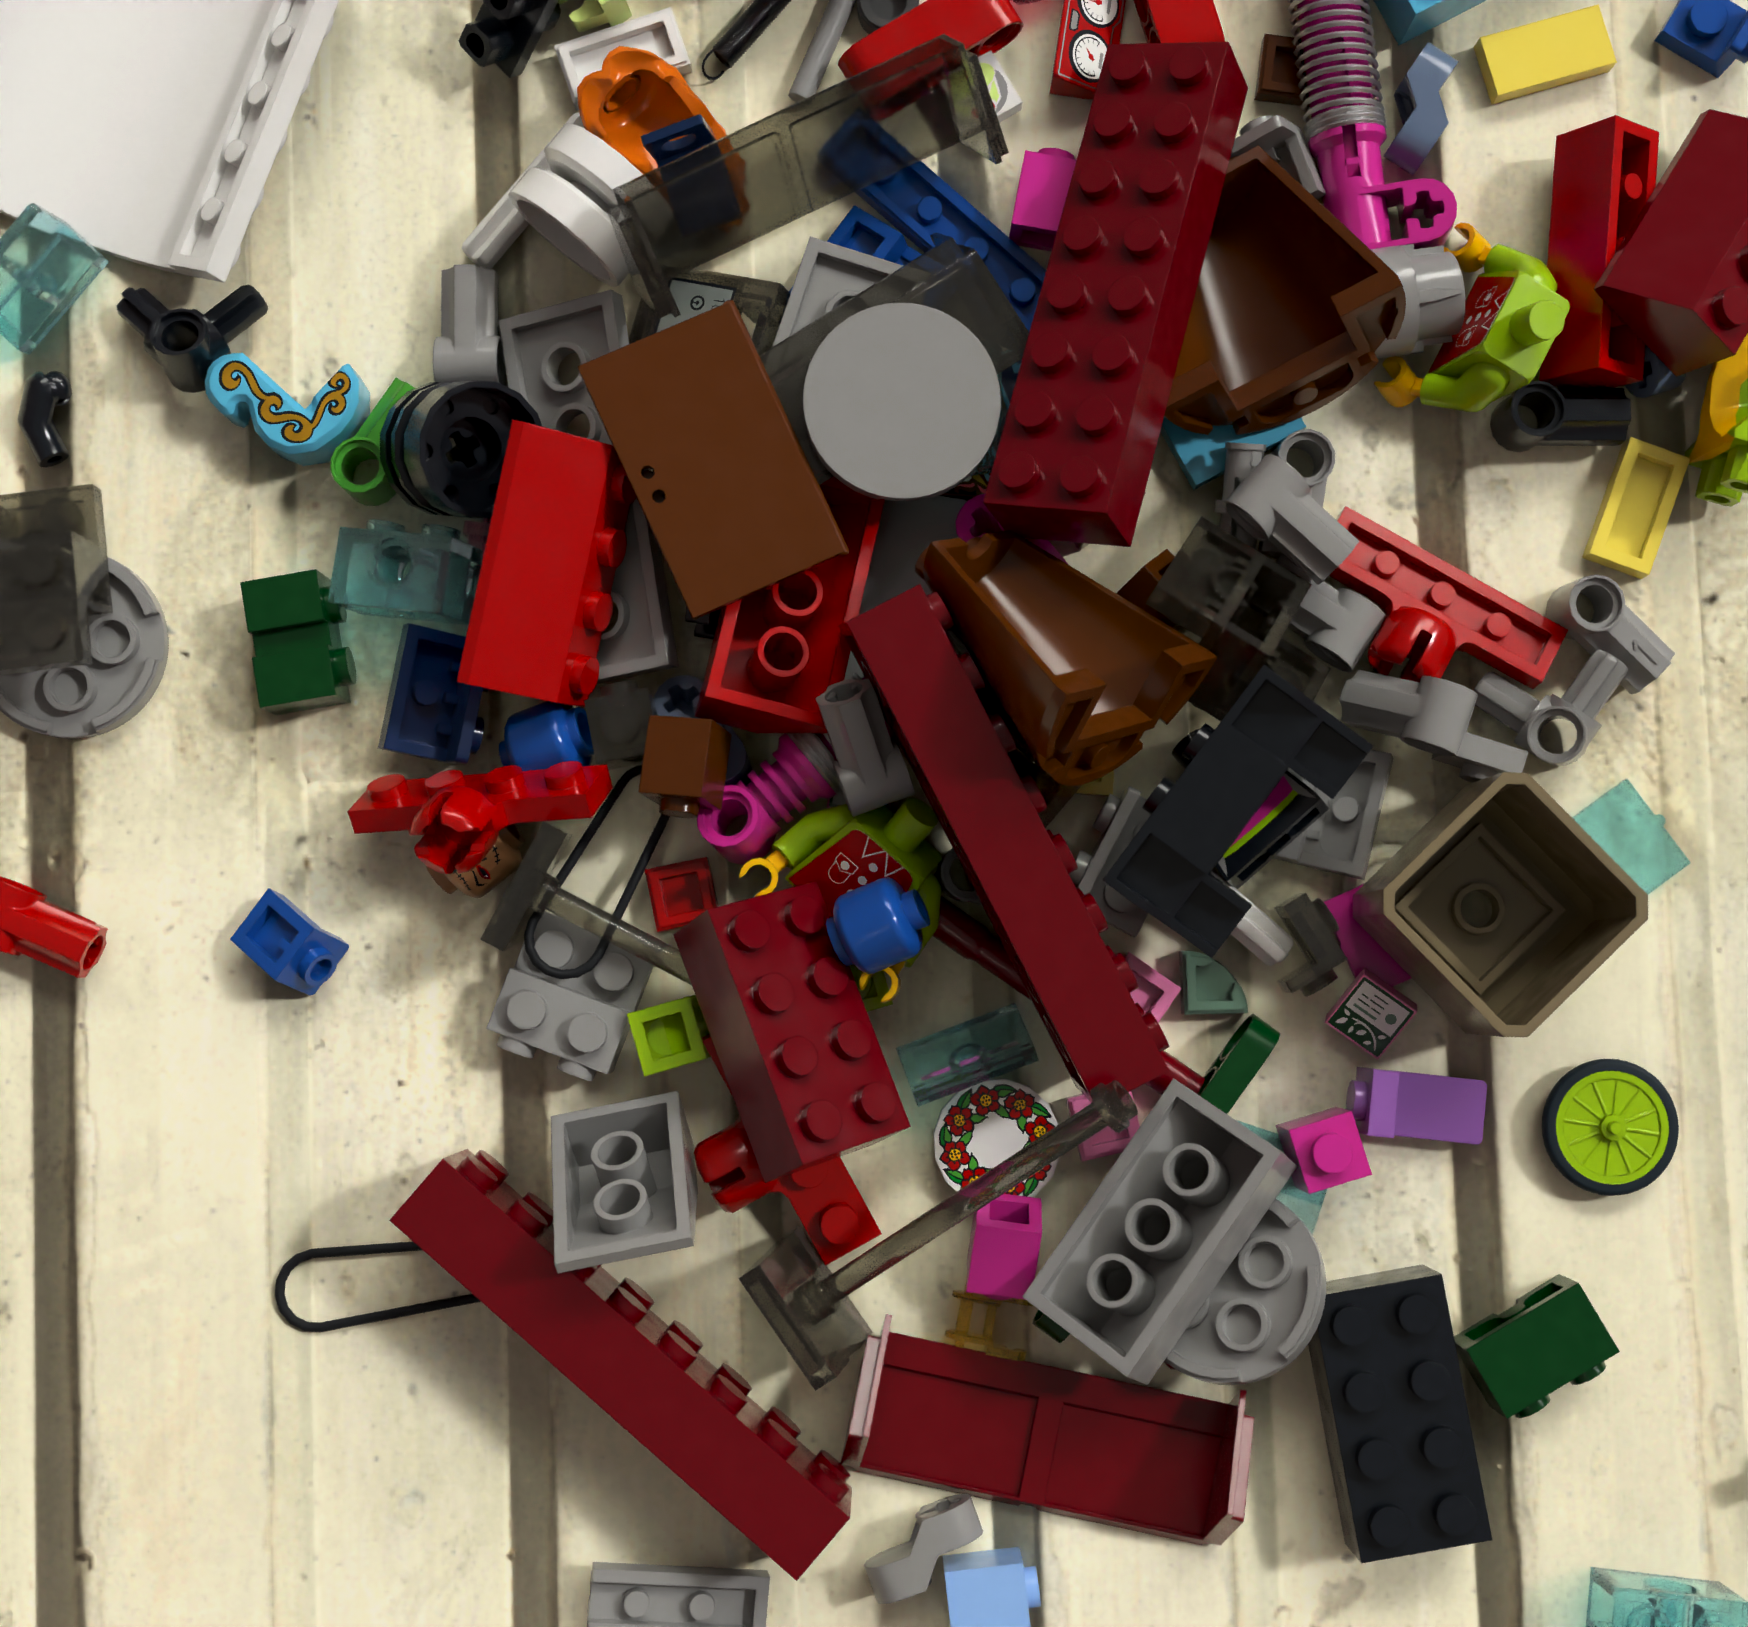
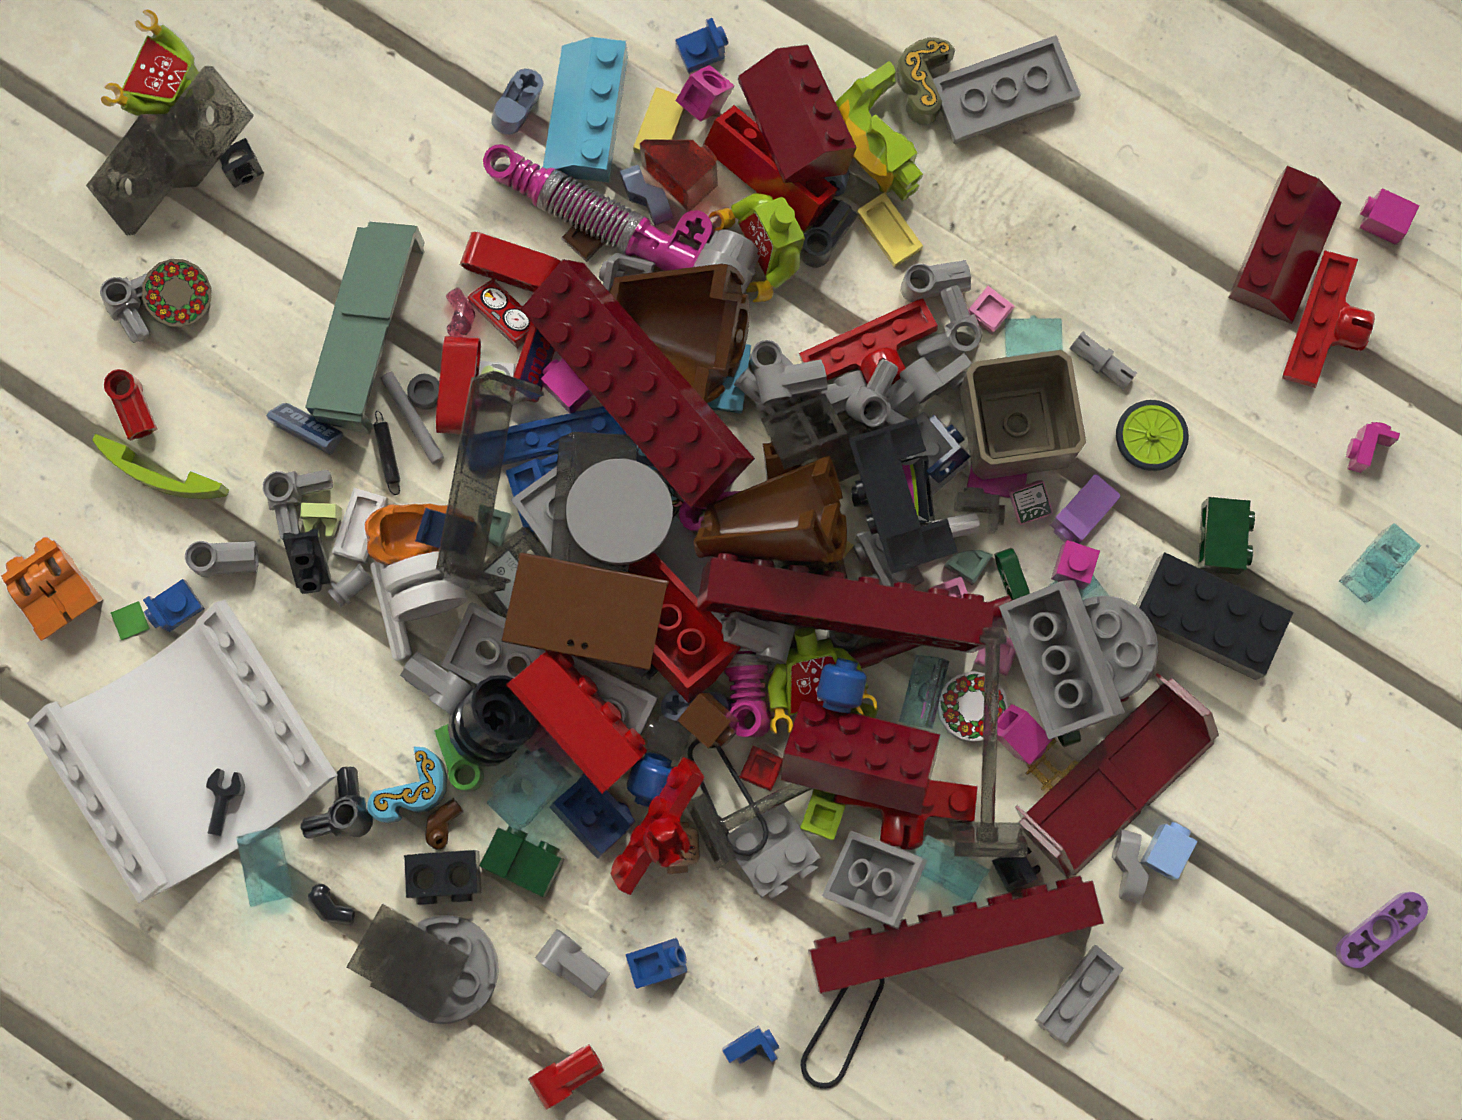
camera: 55 degrees left, 5 degrees down
(92, 149) = (222, 798): none -> black bar
(202, 803) = (566, 959): none -> light grey piece
(206, 535) = (442, 866): none -> black brick
(256, 1157) = (744, 1046): none -> blue bracket
(272, 484) = (438, 824): none -> reddish brown arm
(523, 106) = (350, 585): none -> light grey pin
(721, 1254) = (953, 873): none -> clear light blue panel
(764, 255) = (499, 527): none -> sand green tile
(789, 1389) = (1015, 871): none -> black tile
(1042, 122) = (534, 358): none -> slope
(1362, 851) = (957, 454): none -> dark blue bracket
(1371, 658) = (880, 411): none -> light grey axle
(1501, 125) = (681, 169): none -> clear red slope
(1625, 747) = (991, 309): none -> bright pink tile
(1644, 78) = (704, 93): none -> dark pink brick
(1671, 971) = (1103, 360): none -> light grey pin

